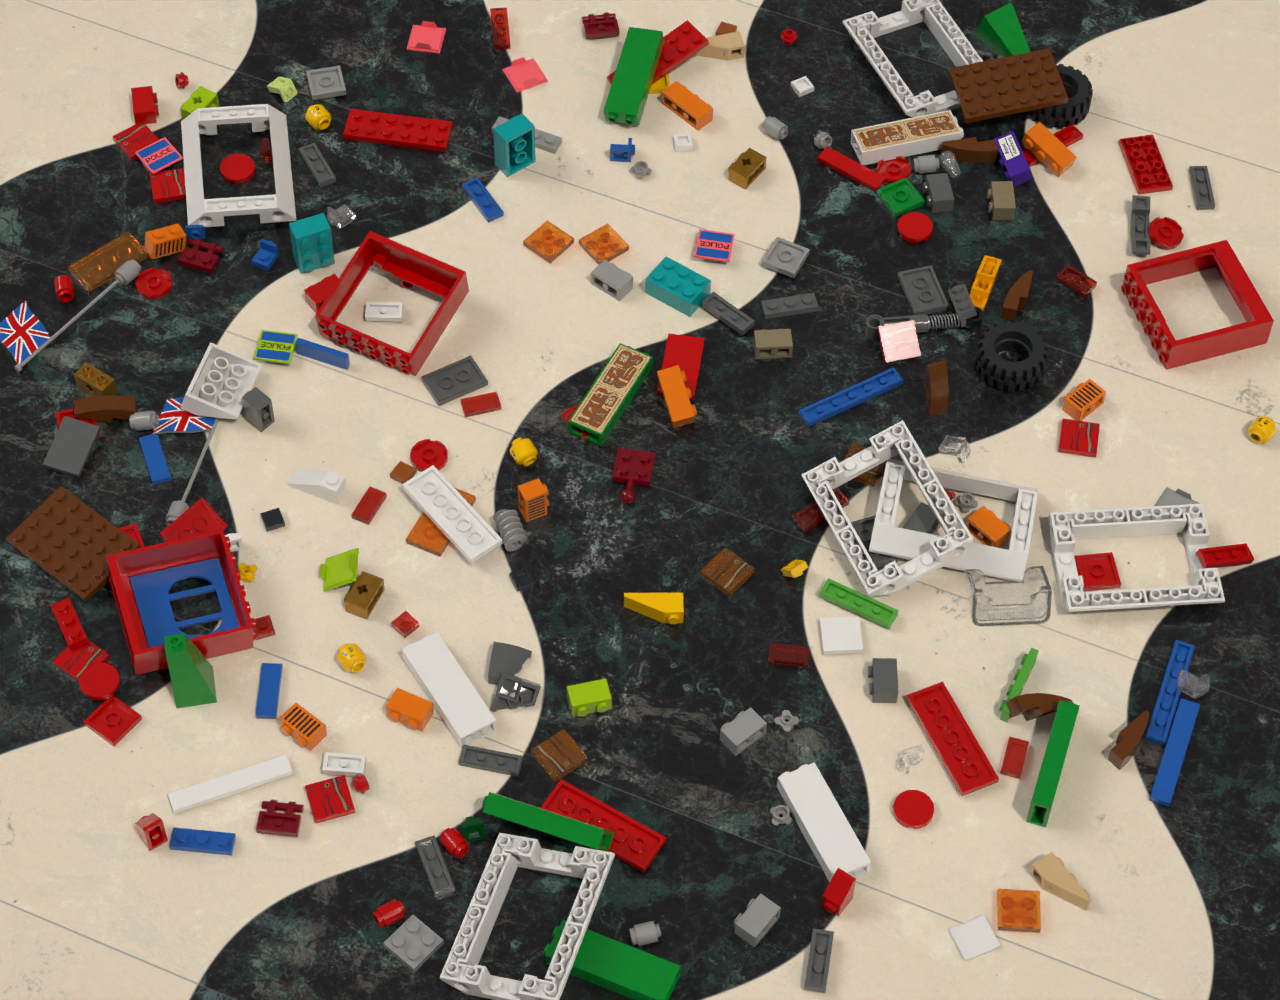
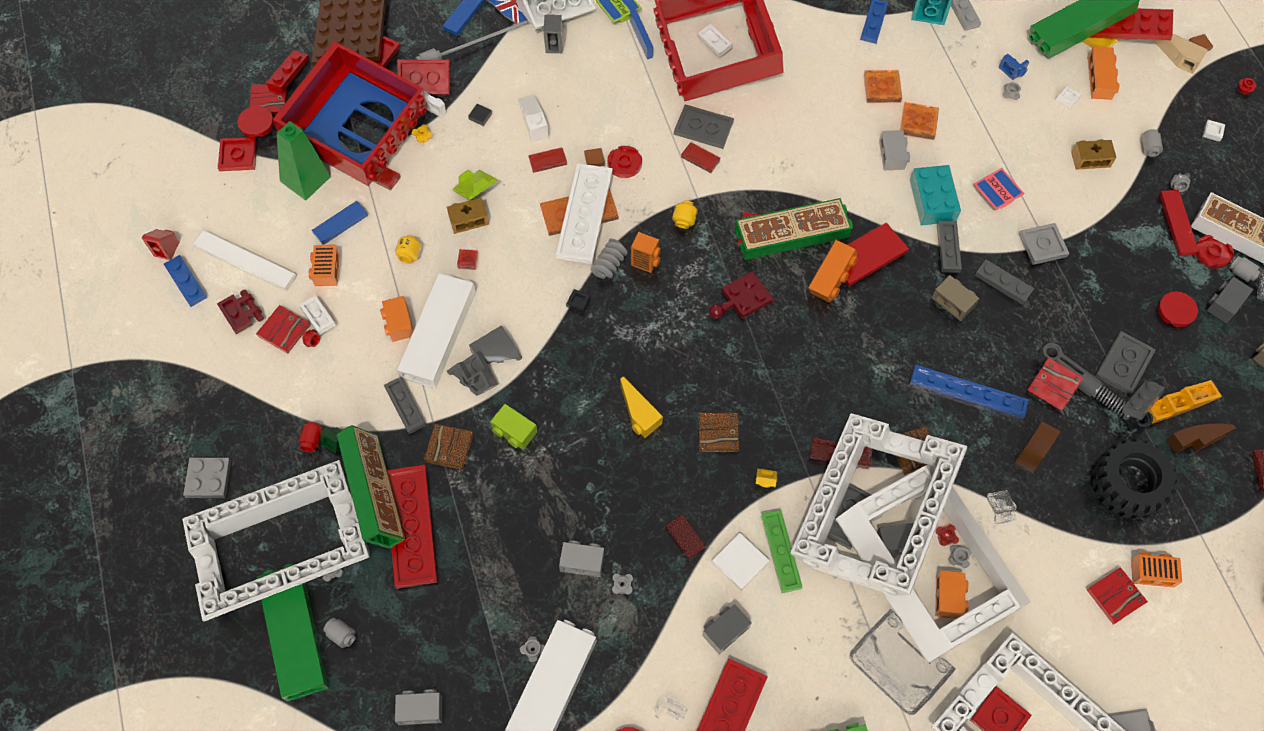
camera: 50 degrees right, 10 degrees up
(389, 913) = (215, 441): red brick -> none
(434, 866) = (283, 440): dark grey tile -> none
(900, 197) = (1193, 276): green tile -> none

